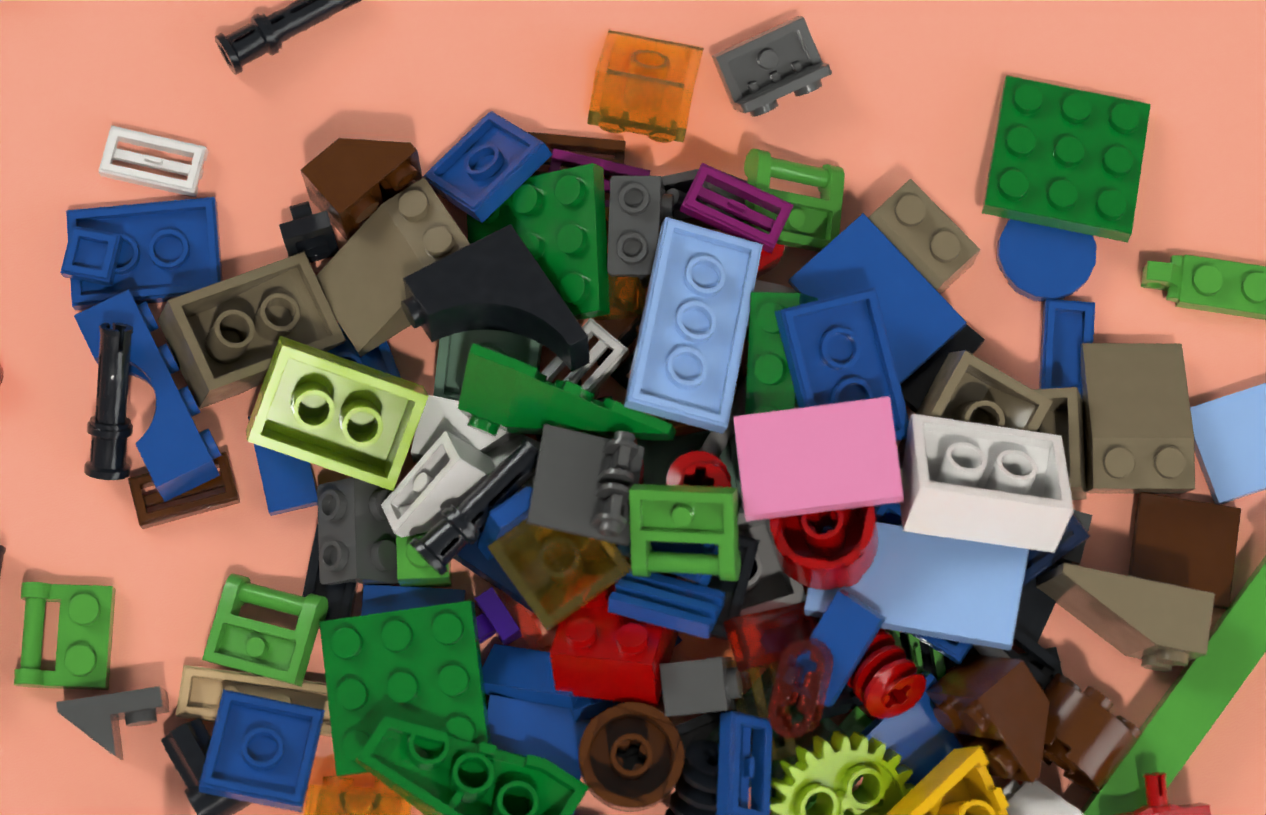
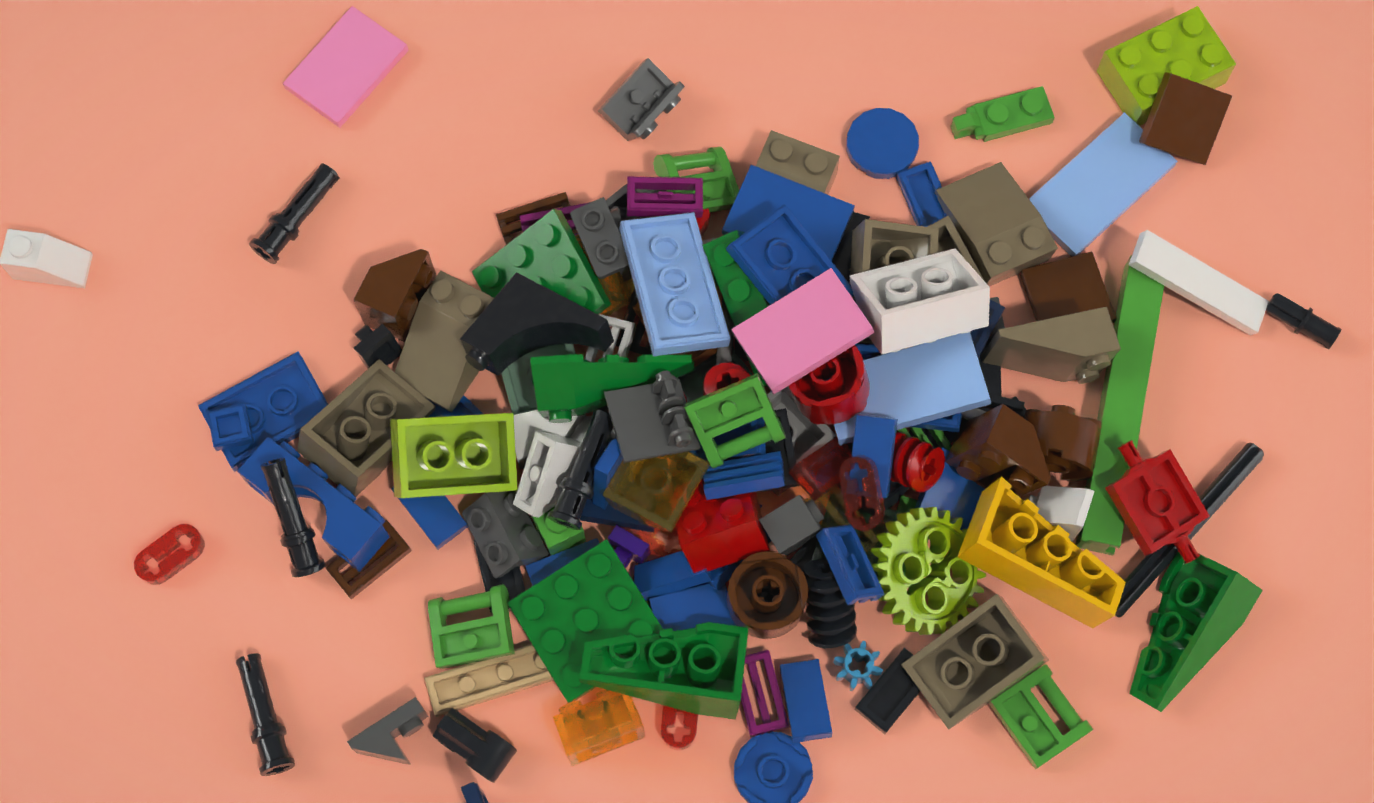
camera: 20 degrees left, 5 degrees down
(82, 638) = (343, 692): bright green plate -> none
(138, 177) = (248, 359): white tile -> none
(262, 751) = (508, 709): blue tile -> none
(487, 166) = (480, 246): blue tile -> none
(644, 86) = (562, 150): clear yellow slope -> none
(1066, 159) = (866, 76): green plate -> none

